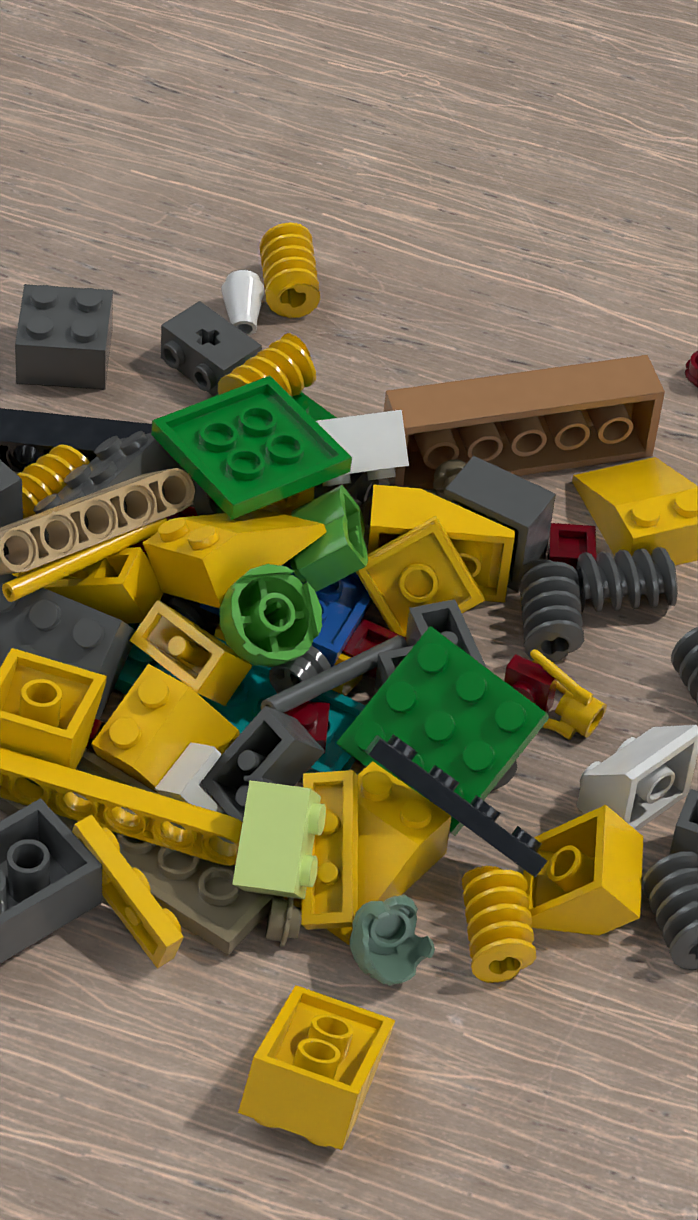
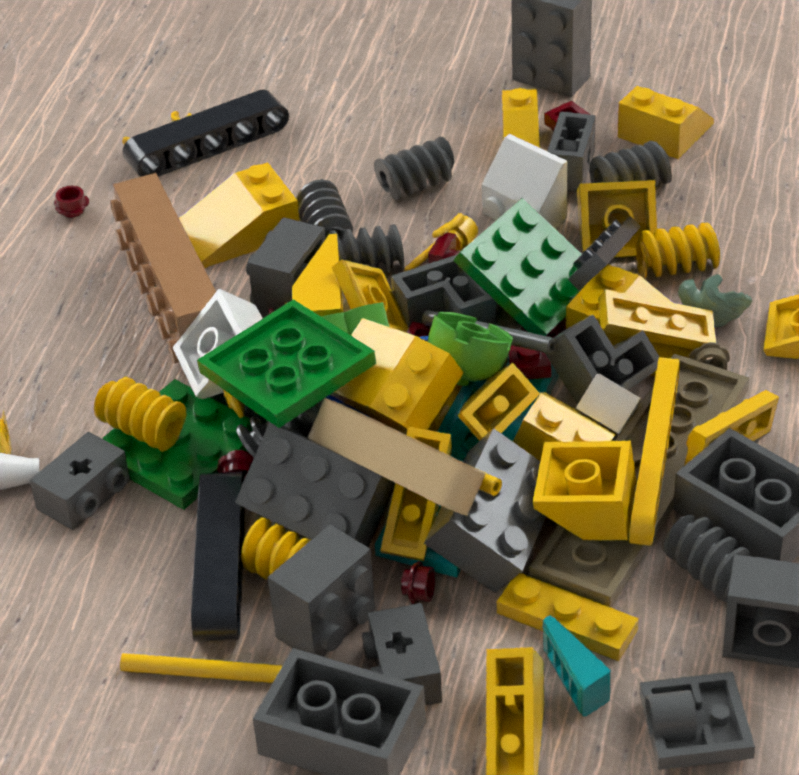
camera: 90 degrees left, 5 degrees down
(64, 336) = (71, 581): dark grey brick -> none
(279, 840) = (676, 330): yellowish green brick -> none

